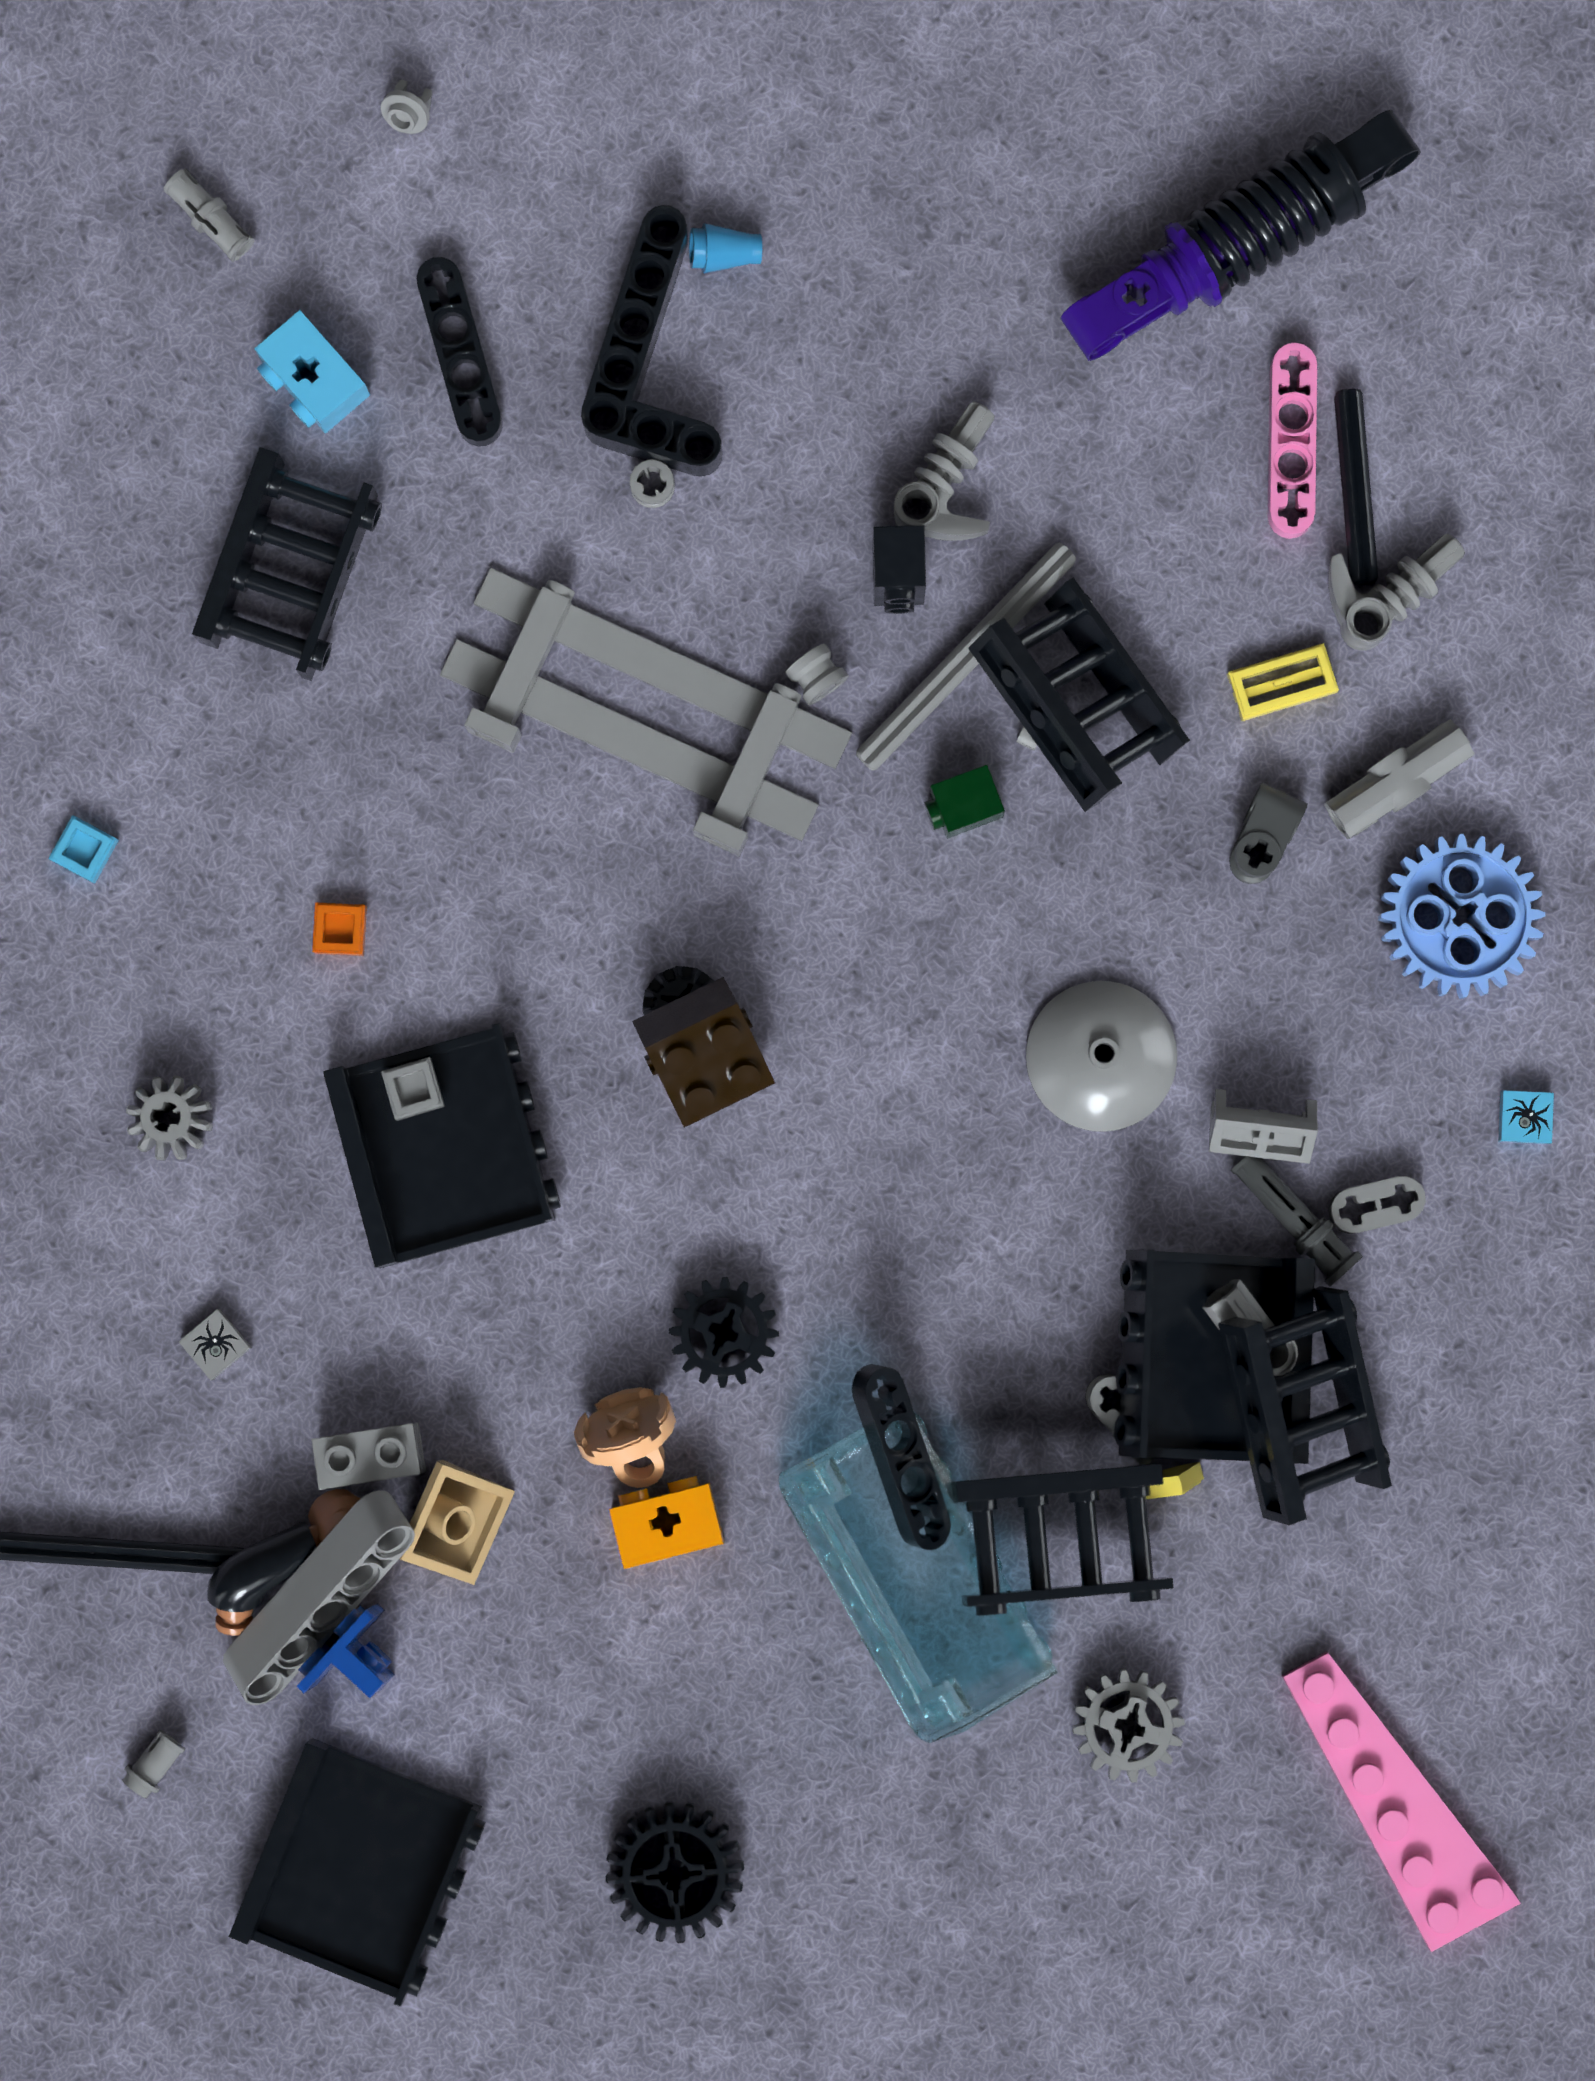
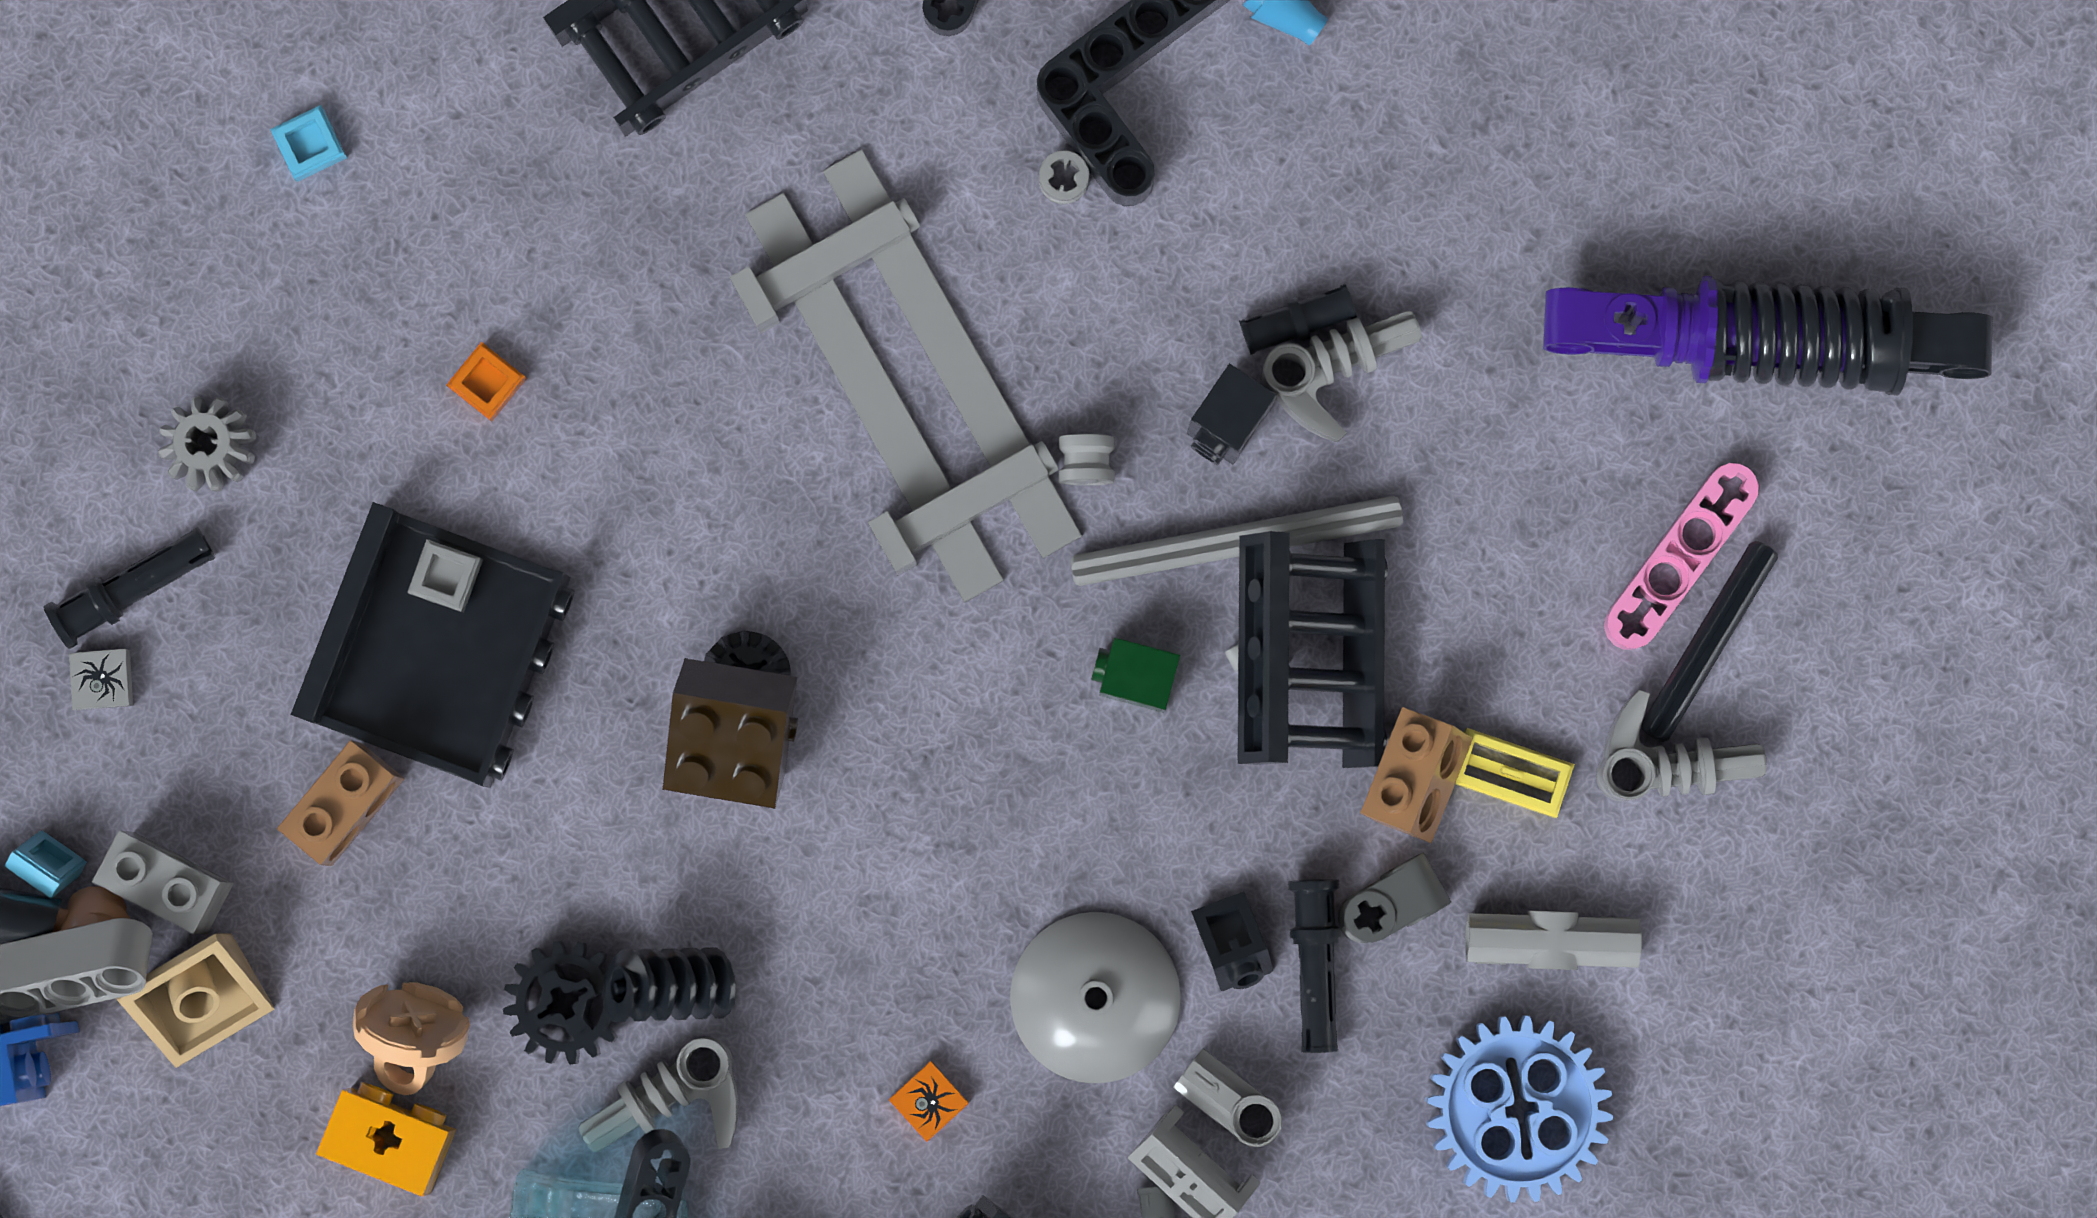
camera: 30 degrees right, 0 degrees up
(177, 1283) = (106, 599): none -> black pin
(273, 1504) = (45, 864): none -> medium azure tile
(456, 1306) = (340, 803): none -> medium nougat brick
(791, 1263) = (669, 984): none -> black piece
(840, 1346) = (660, 1092): none -> light grey piece
(895, 465) = (1297, 319): none -> black pin
(1036, 1215) = (928, 1101): none -> orange tile
(1172, 944) = (1233, 942): none -> black bracket
(1217, 729) = (1416, 775): none -> medium nougat brick
(1228, 898) = (1315, 936): none -> black pin
(1246, 1058) = (1224, 1096): none -> light grey piece

